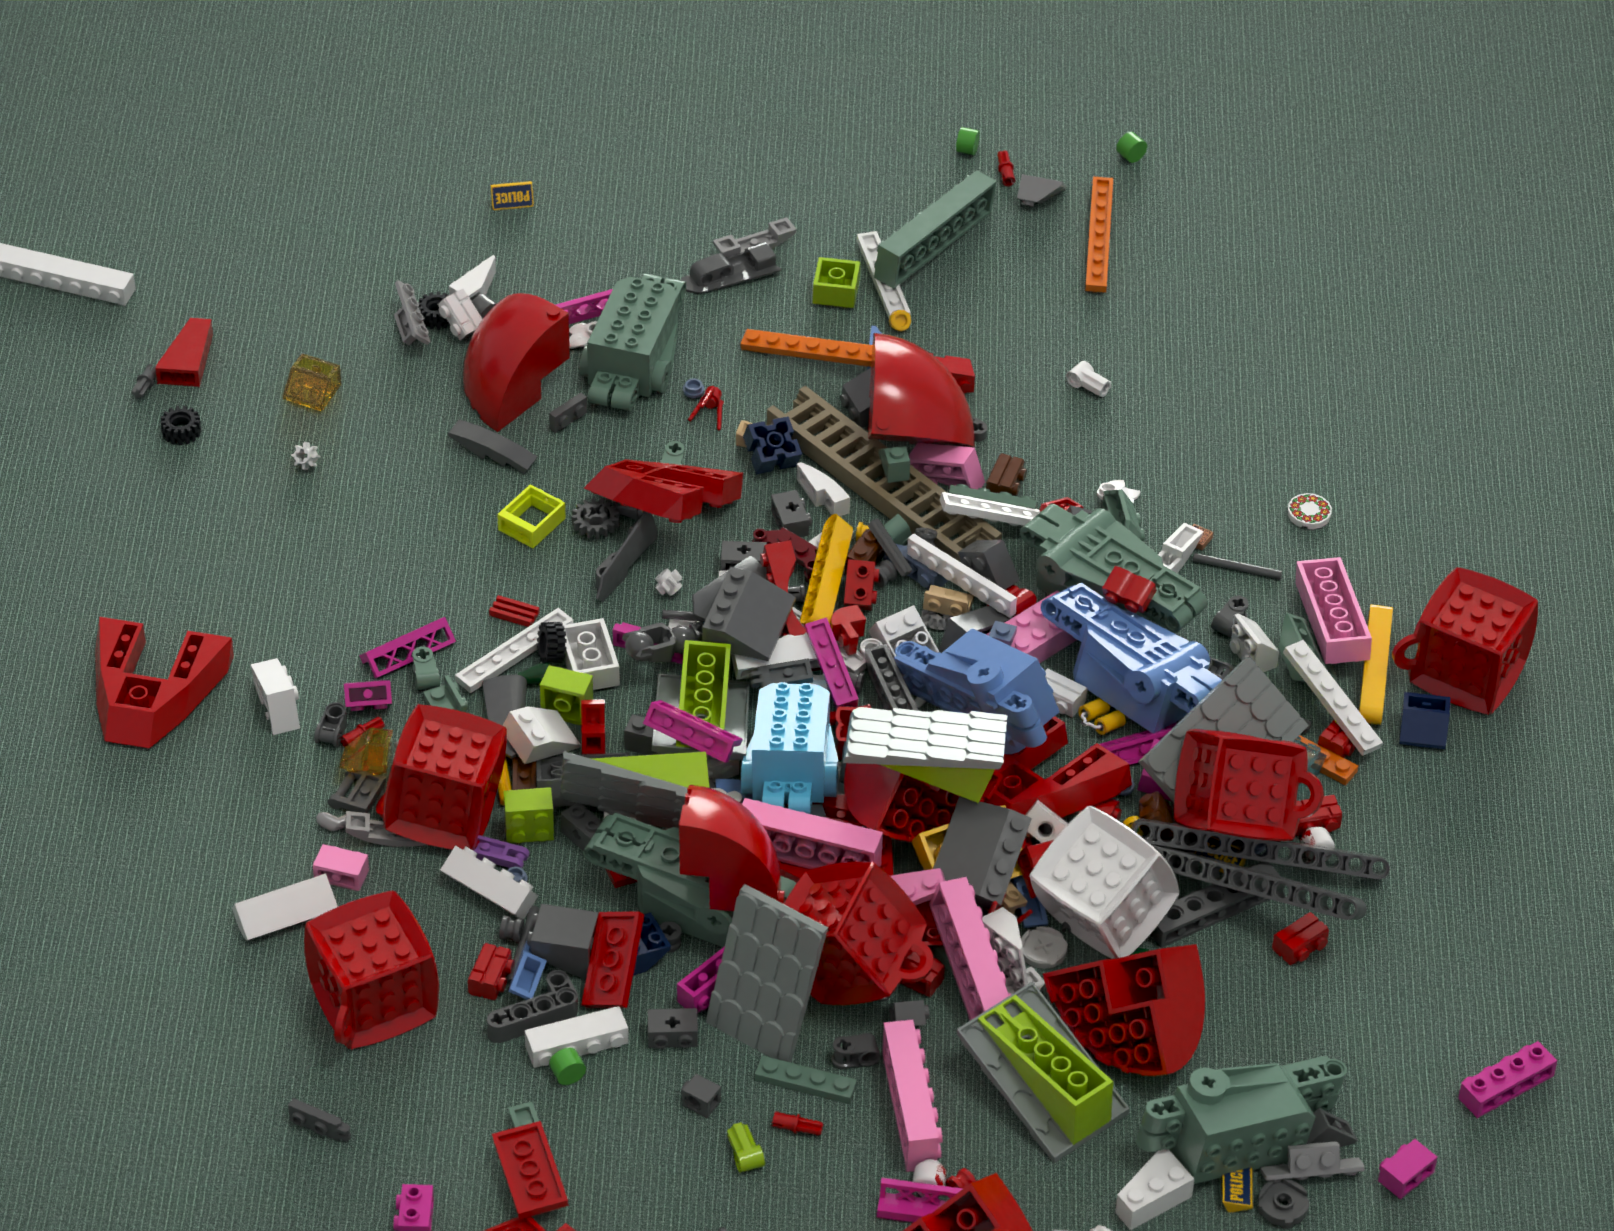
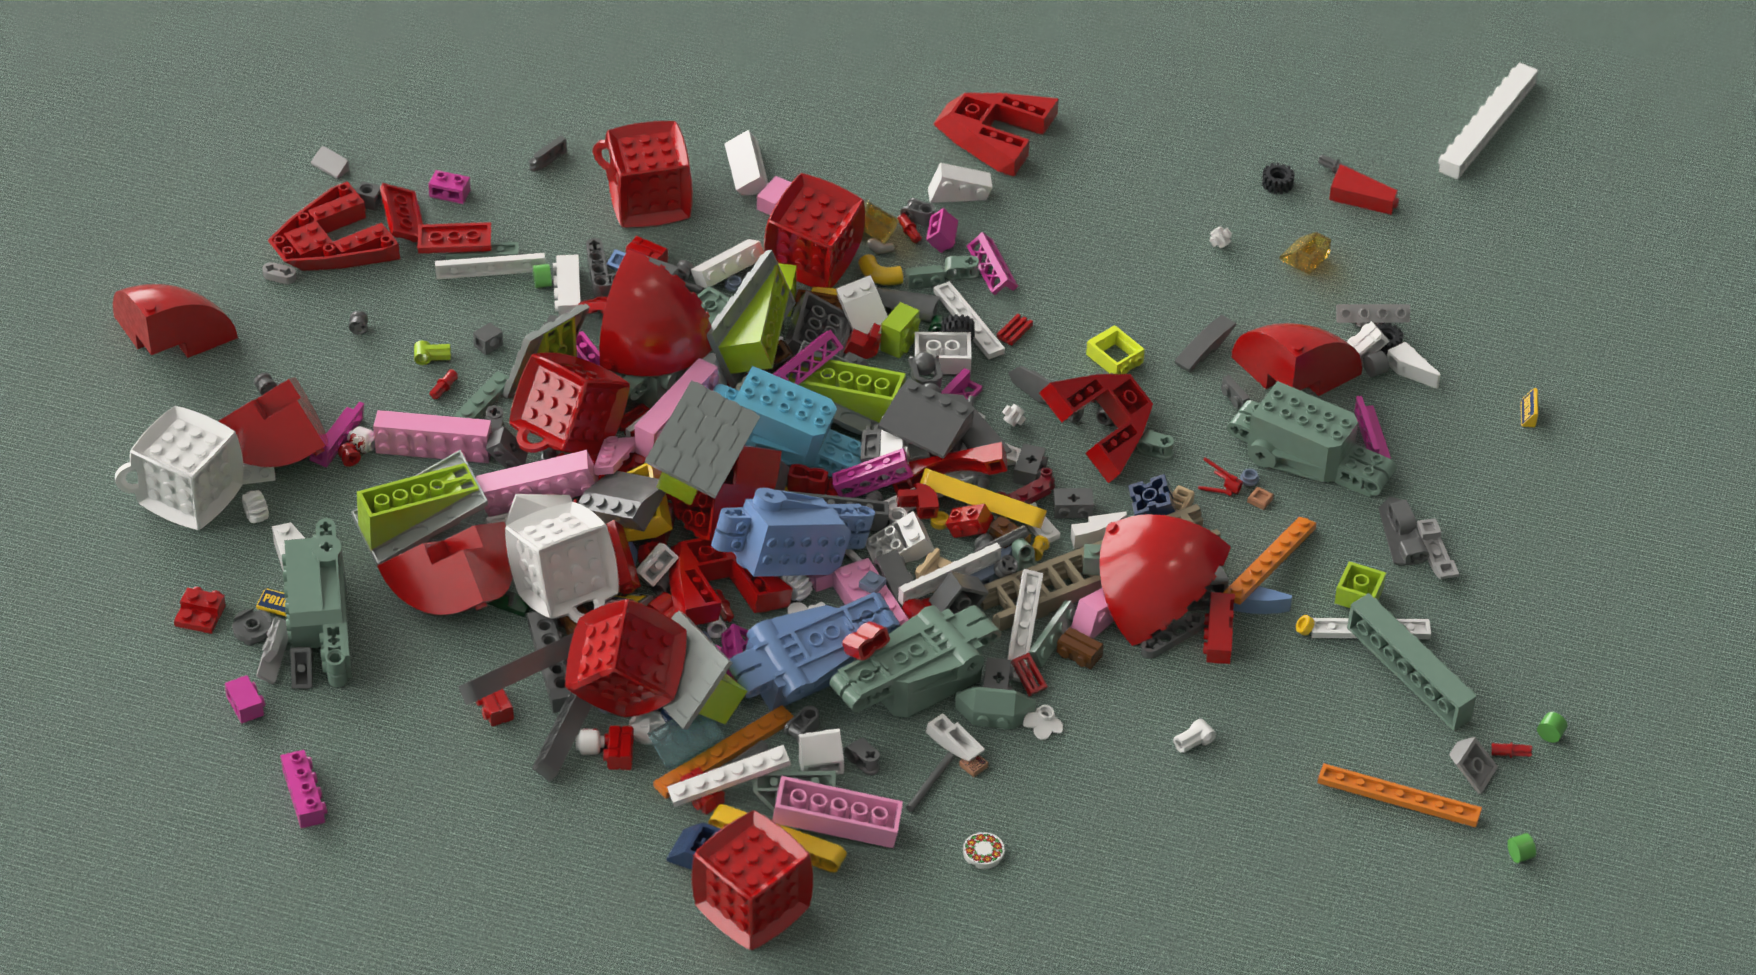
camera: 105 degrees right, 0 degrees up
(564, 1135) = (488, 266): none -> white plate
(719, 378) = (1260, 498): none -> nougat tile

